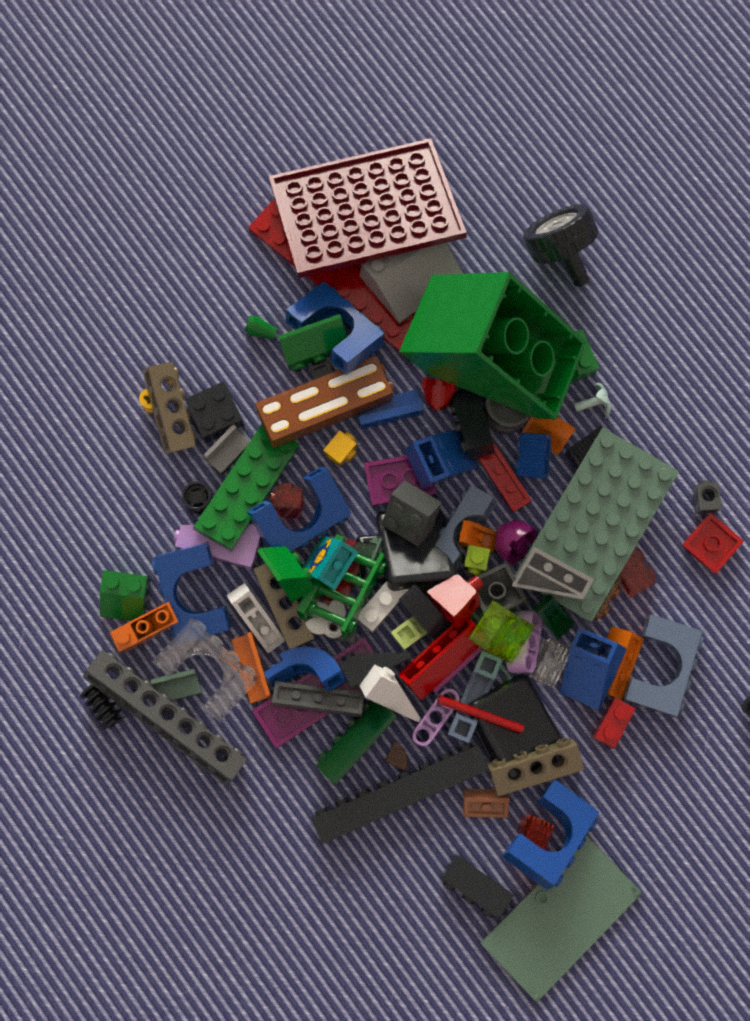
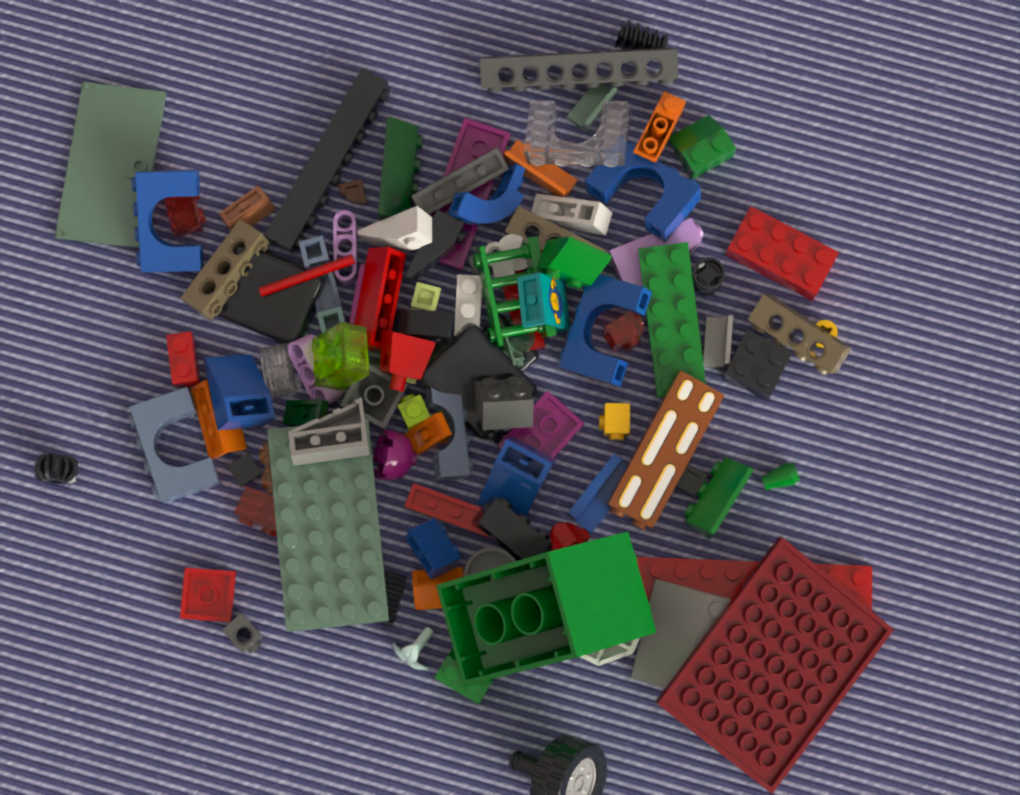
camera: 145 degrees right, 0 degrees up
(133, 475) = (781, 253): none -> red brick
(325, 303) = (740, 543): blue arch -> none
(476, 887) = (203, 134): black brick -> none
(624, 612) = (244, 470): none -> black tile

